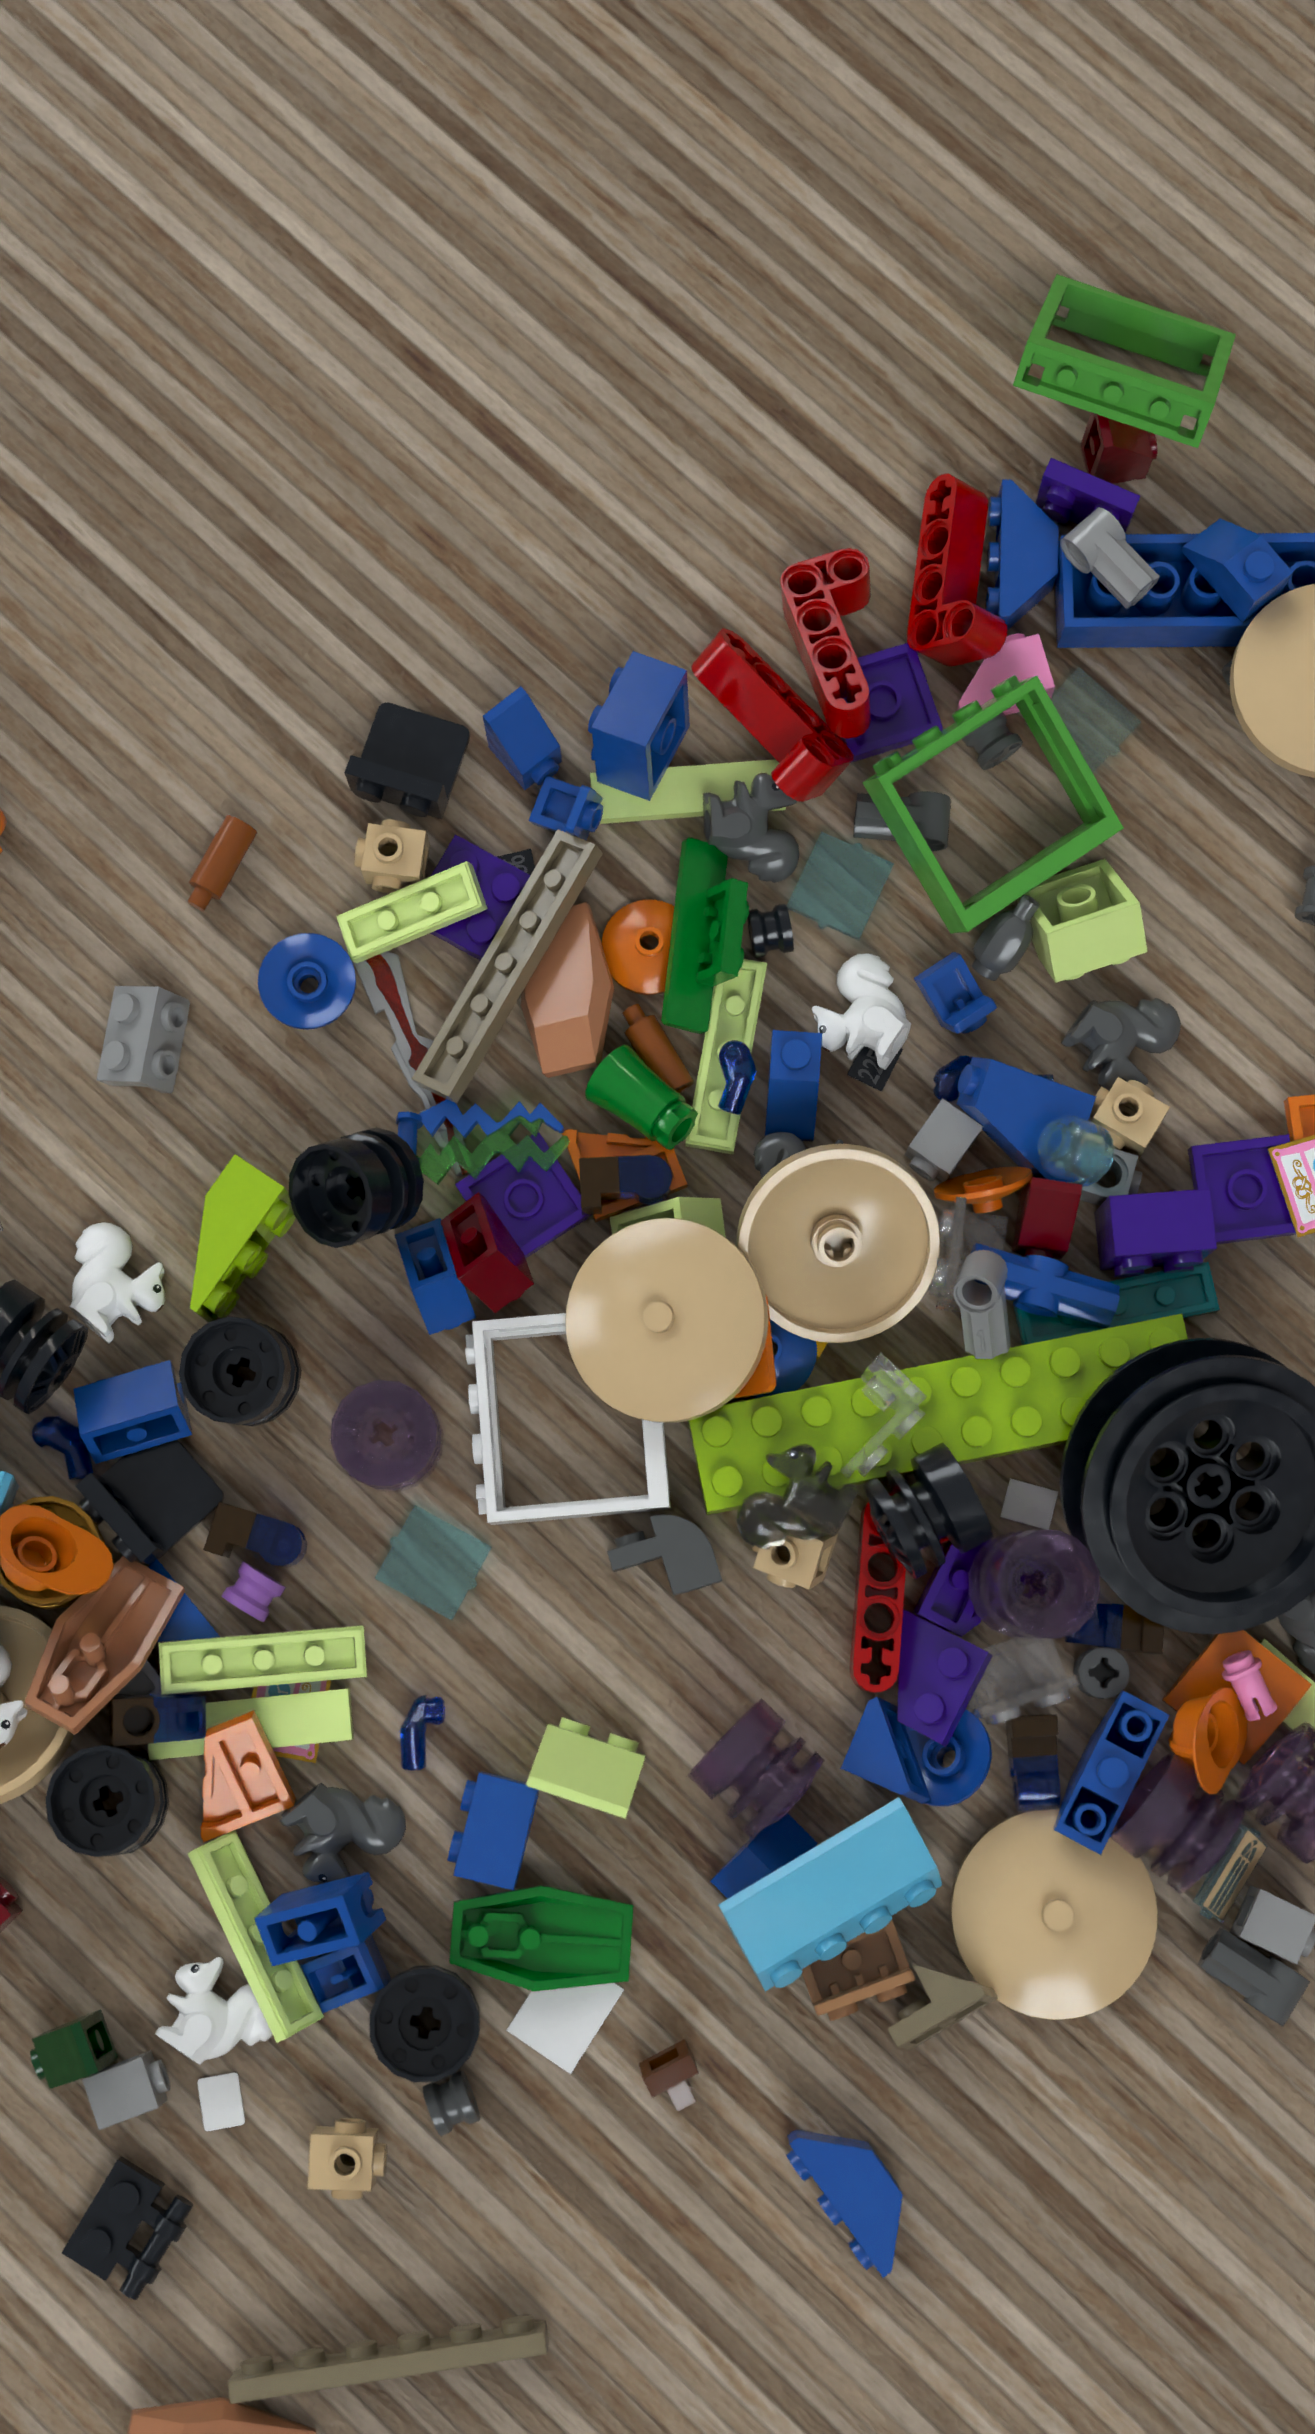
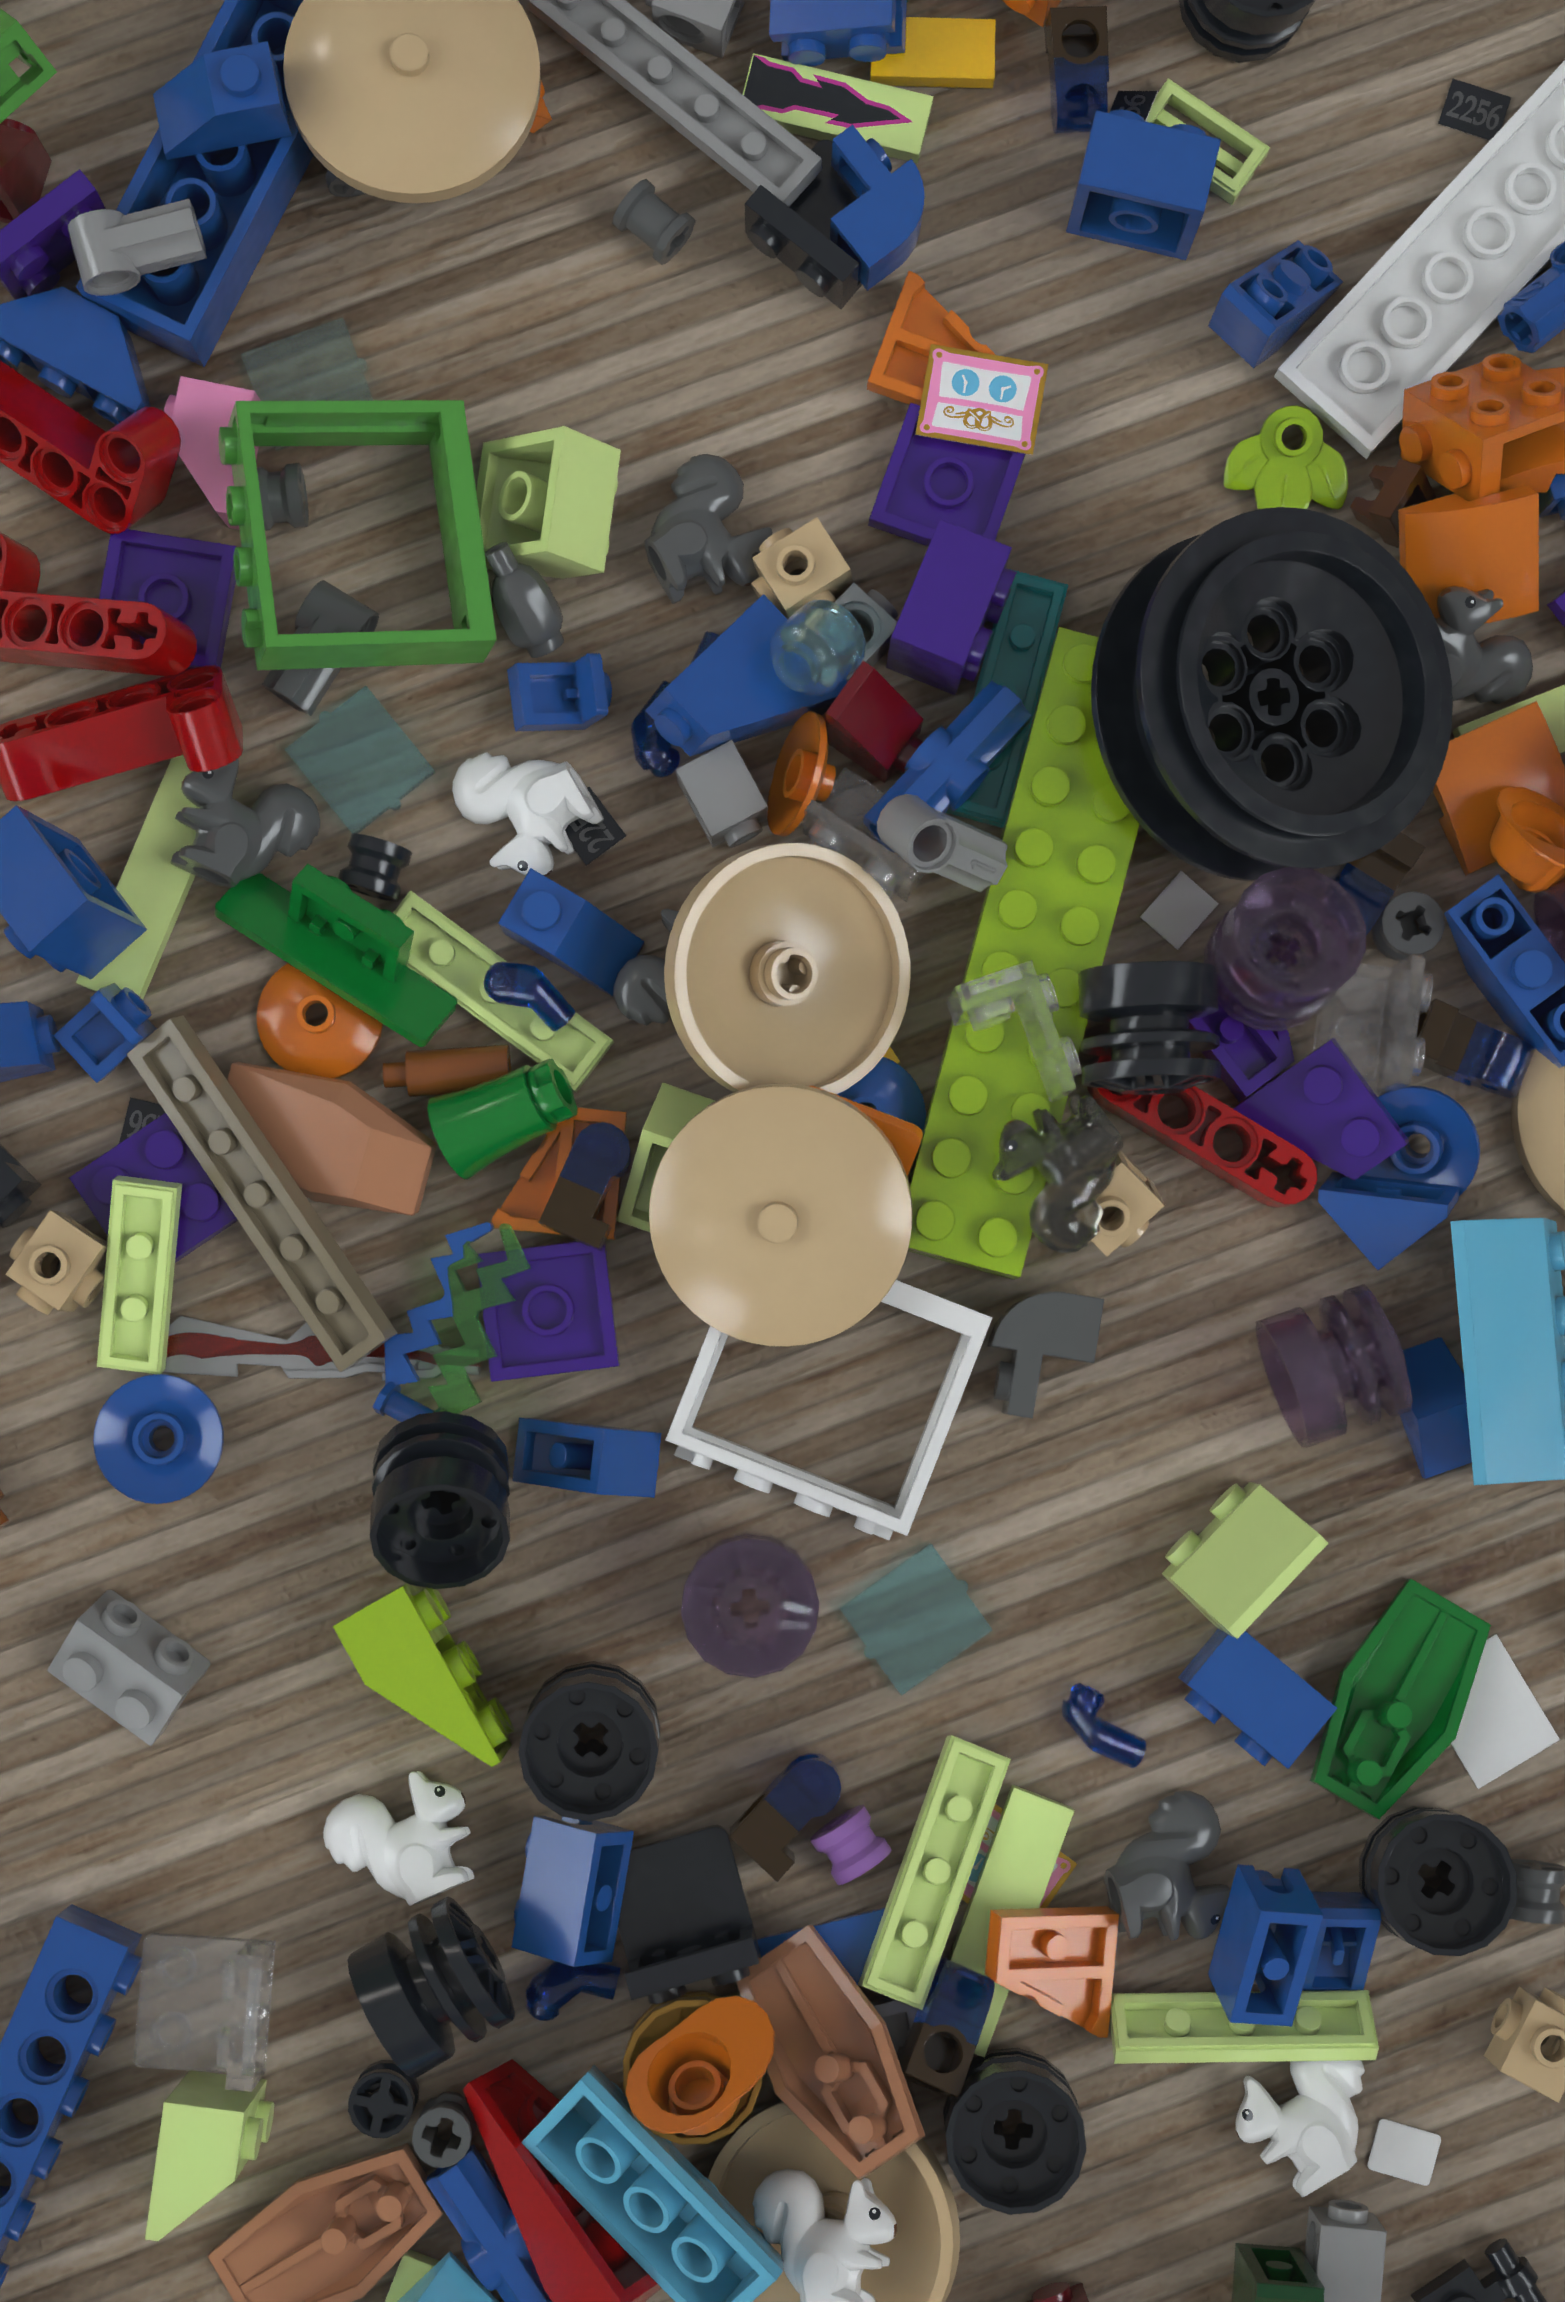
camera: 70 degrees left, 5 degrees up
(486, 1254) = (594, 1386): dark red slope -> none
(1248, 1684) = (1505, 769): bright pink pin -> none

